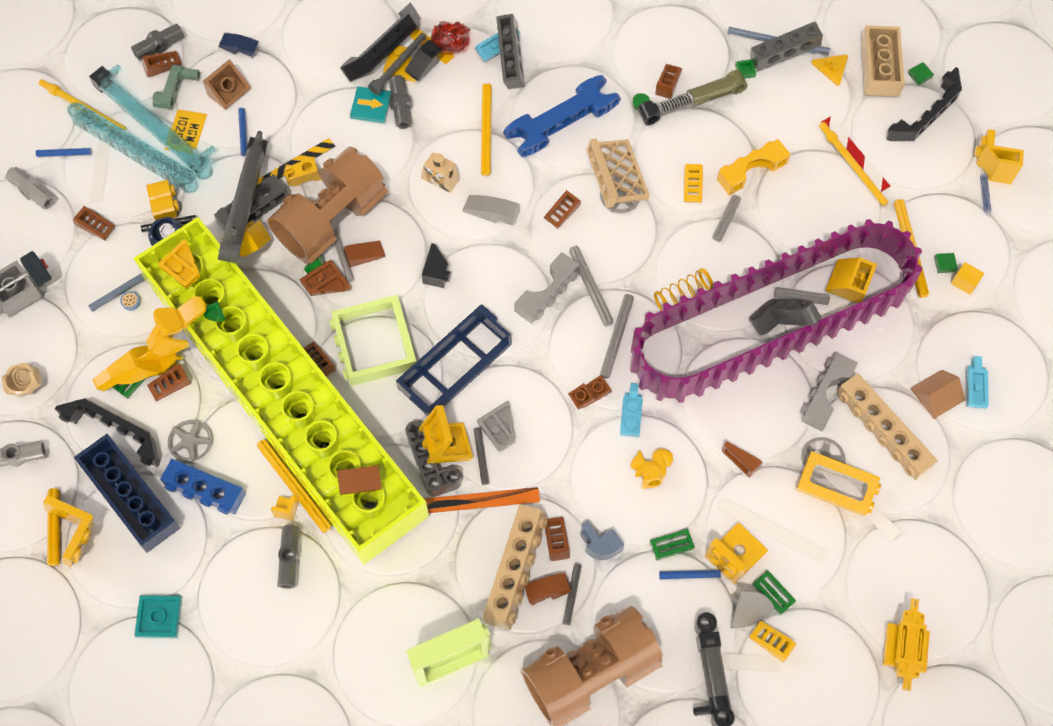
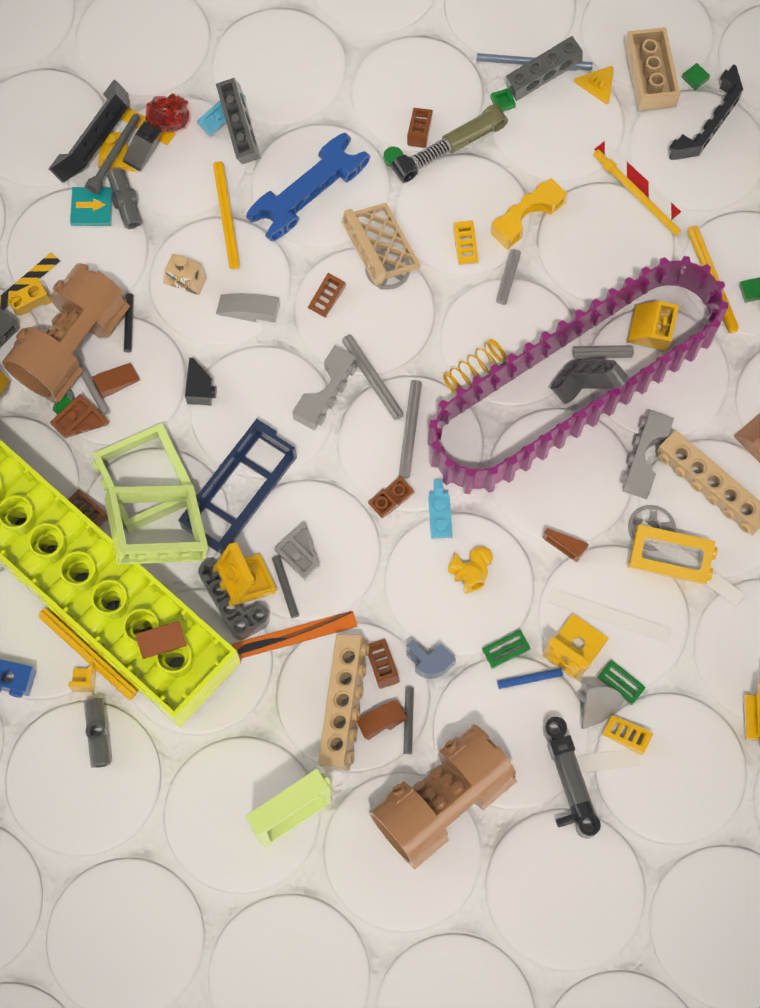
camera: 10 degrees left, 5 degrees up
(368, 402) = (155, 552): none -> yellowish green window
(384, 207) = (128, 325): none -> black bar

